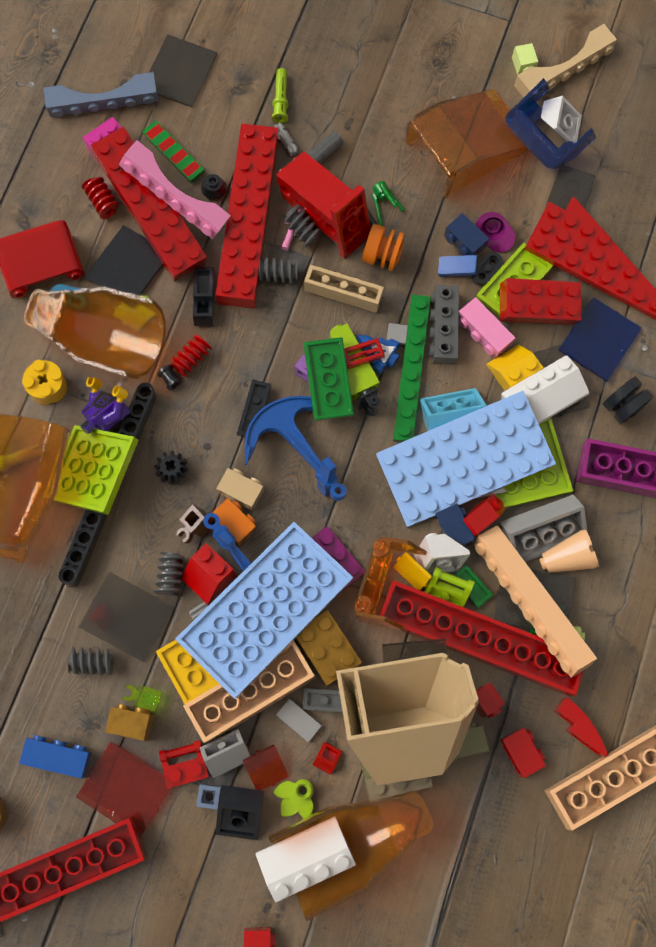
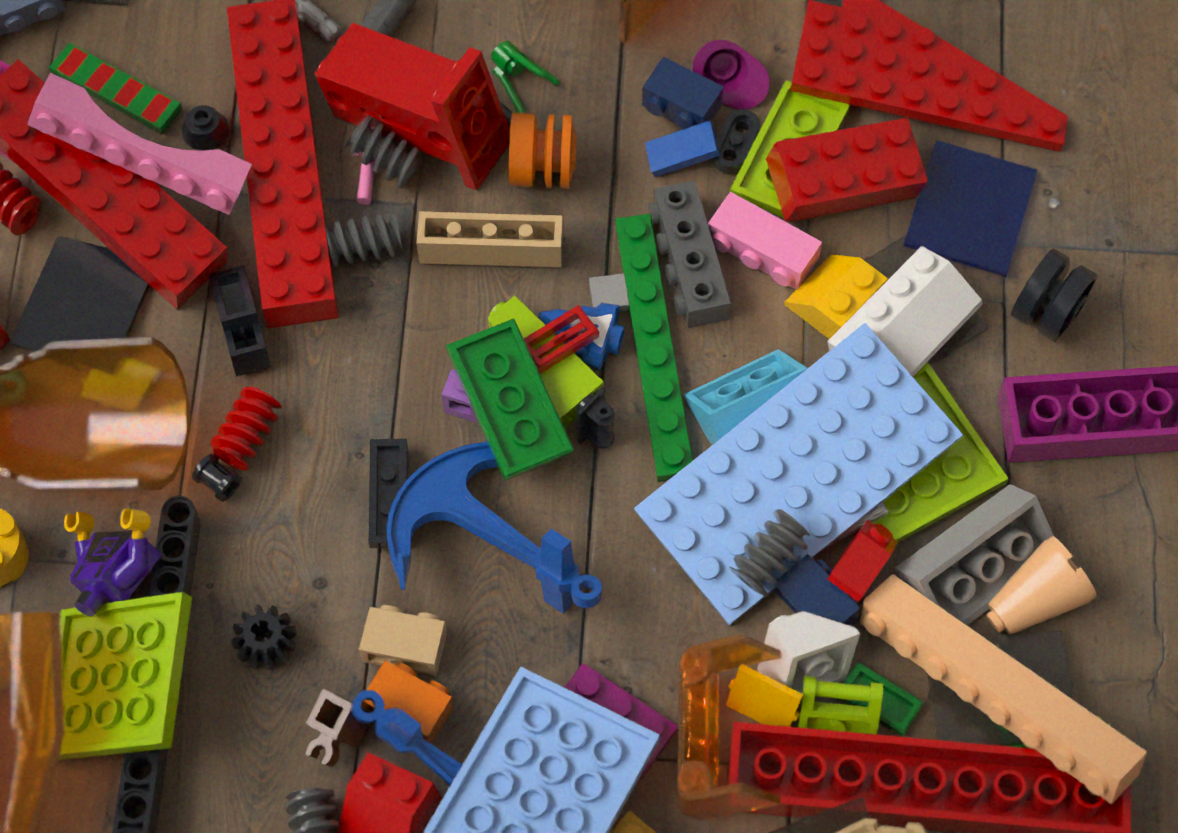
camera: 10 degrees left, 10 degrees down
(437, 498) = (770, 551): none -> dark grey piece

